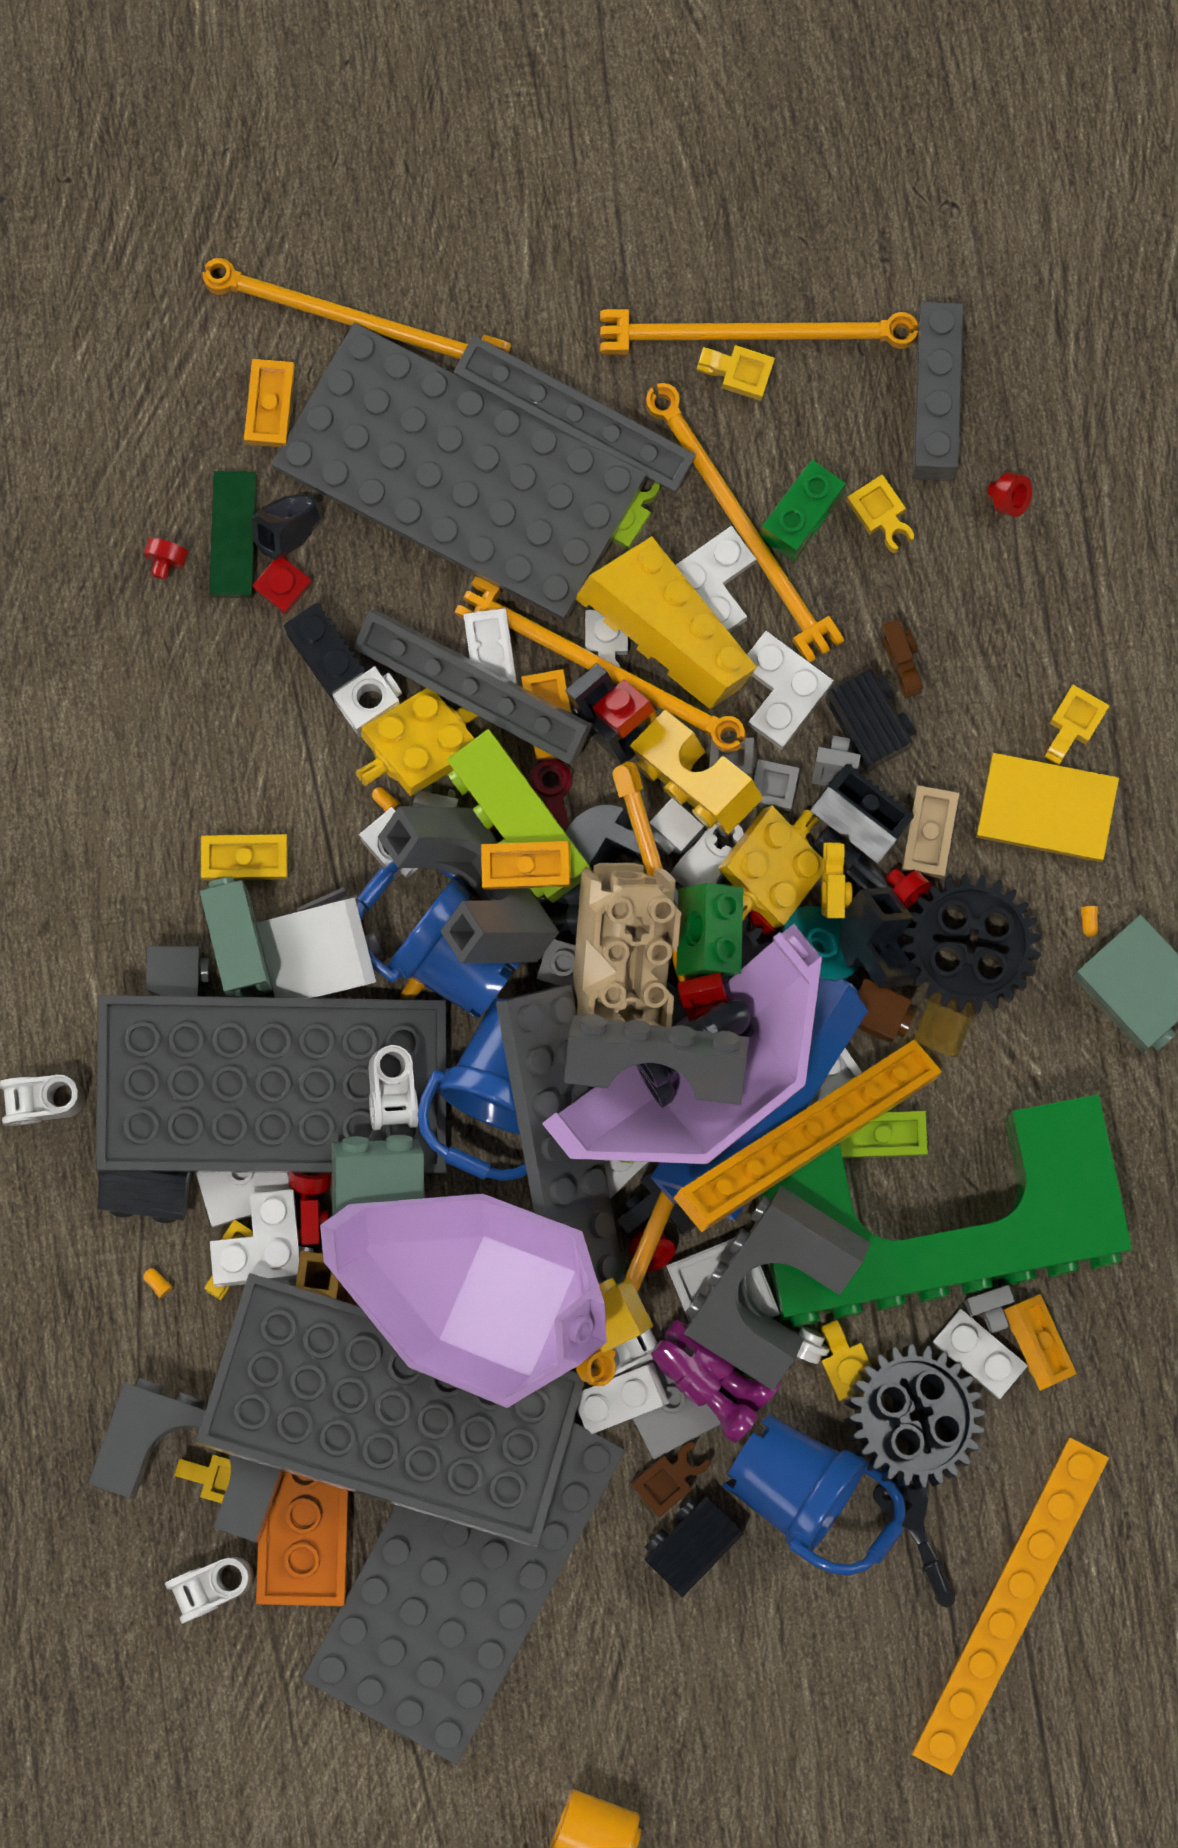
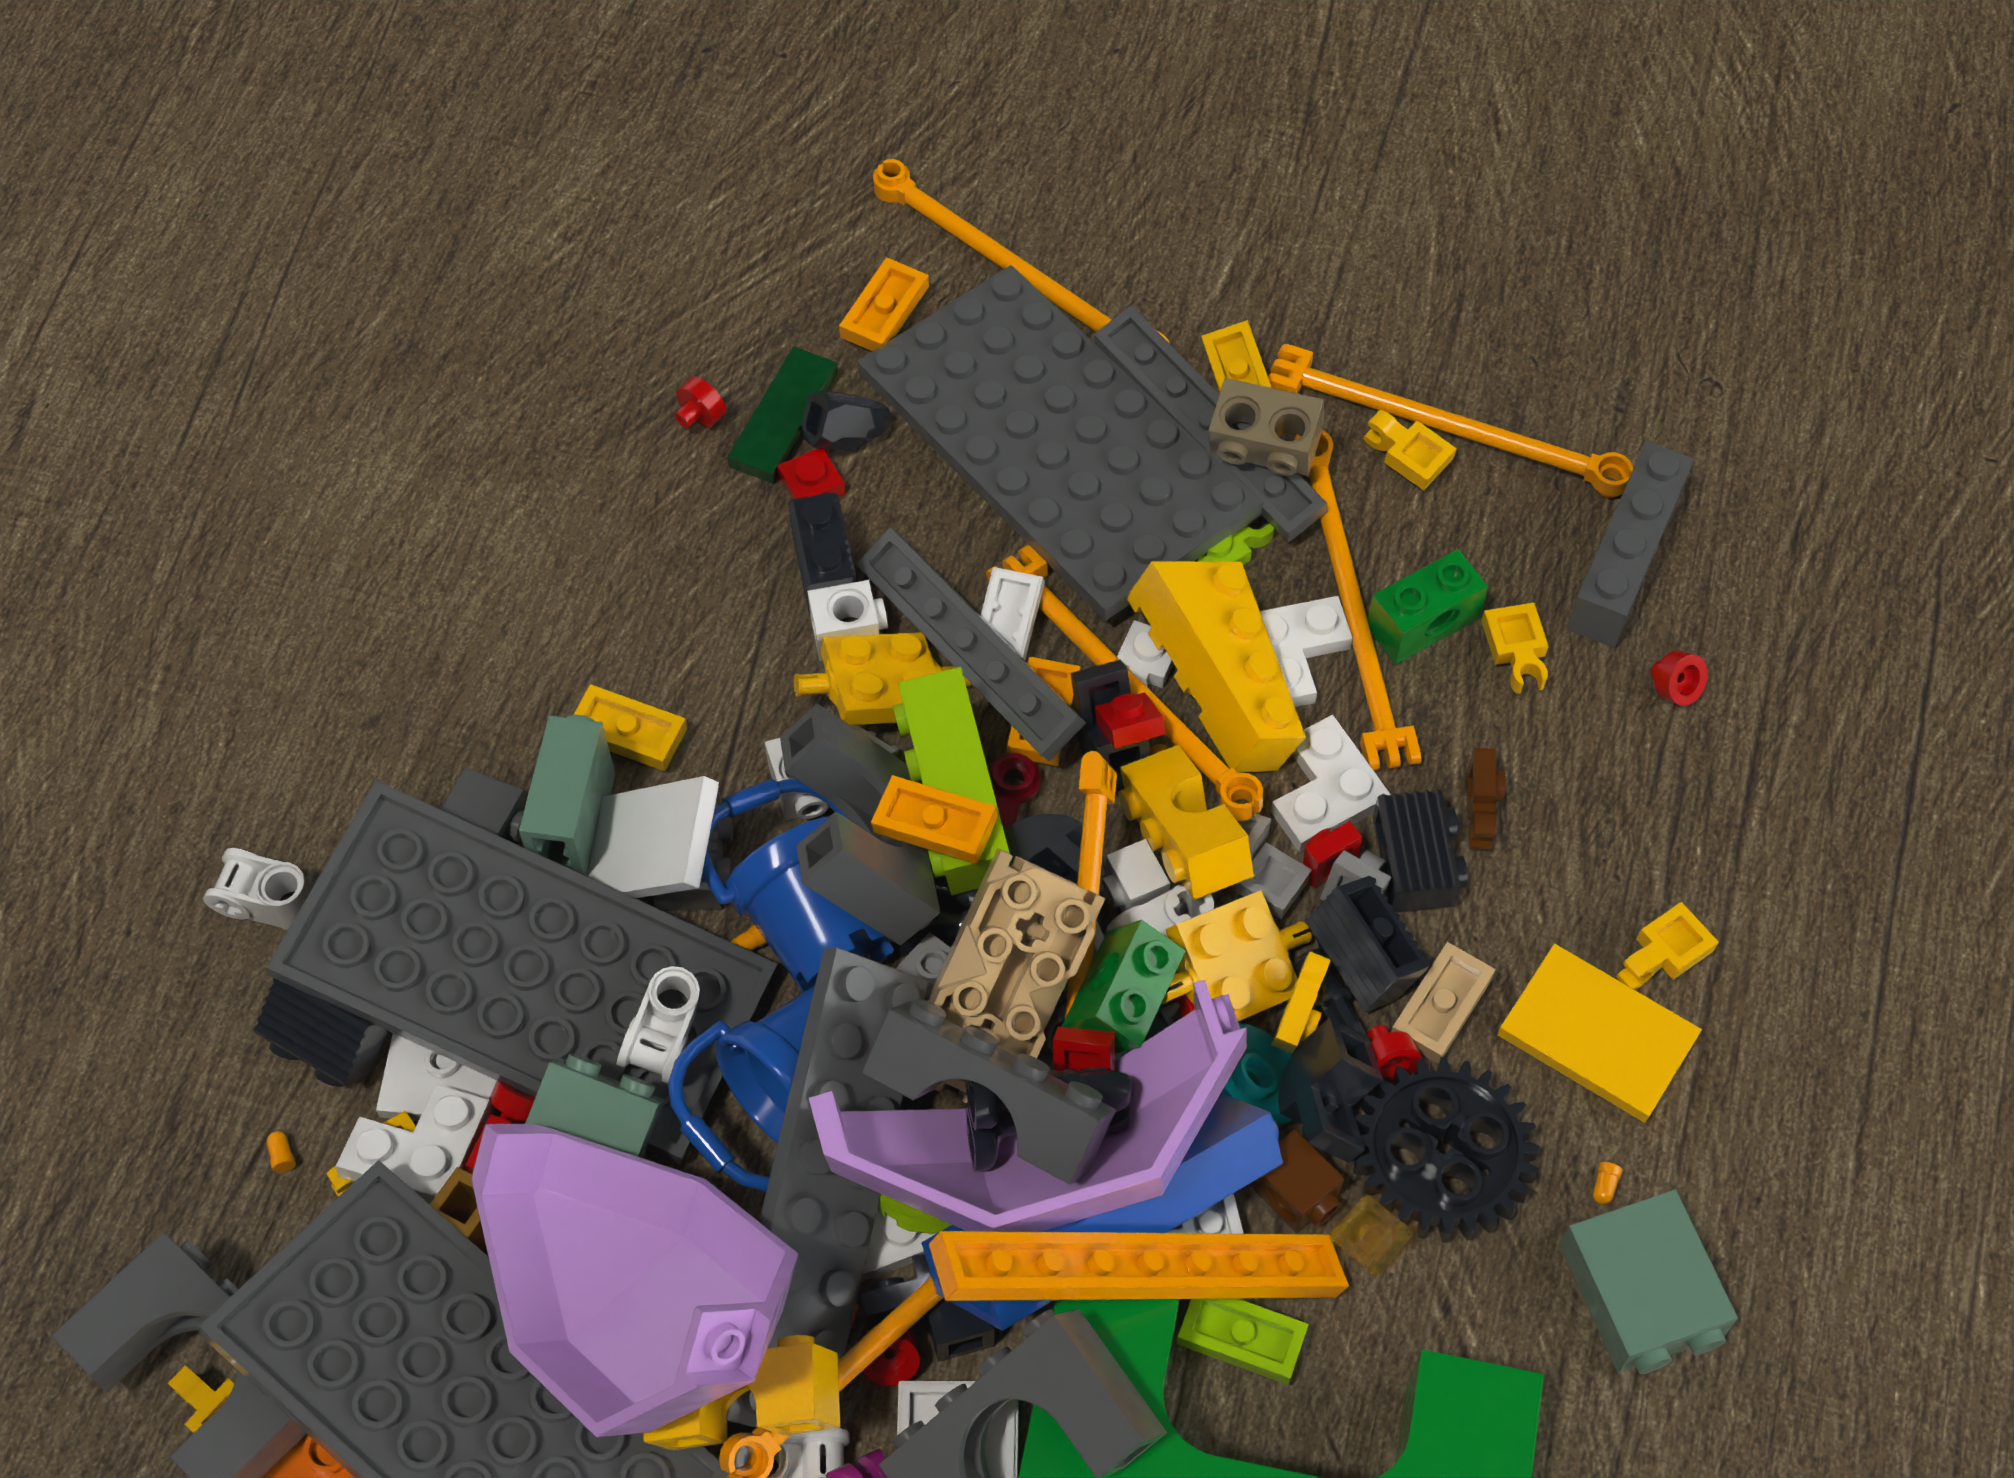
camera: 20 degrees right, 20 degrees down
(577, 352) = (1235, 355): none -> yellow plate
(627, 401) = (1270, 415): none -> dark tan brick
(805, 747) = (1325, 849): none -> red plate

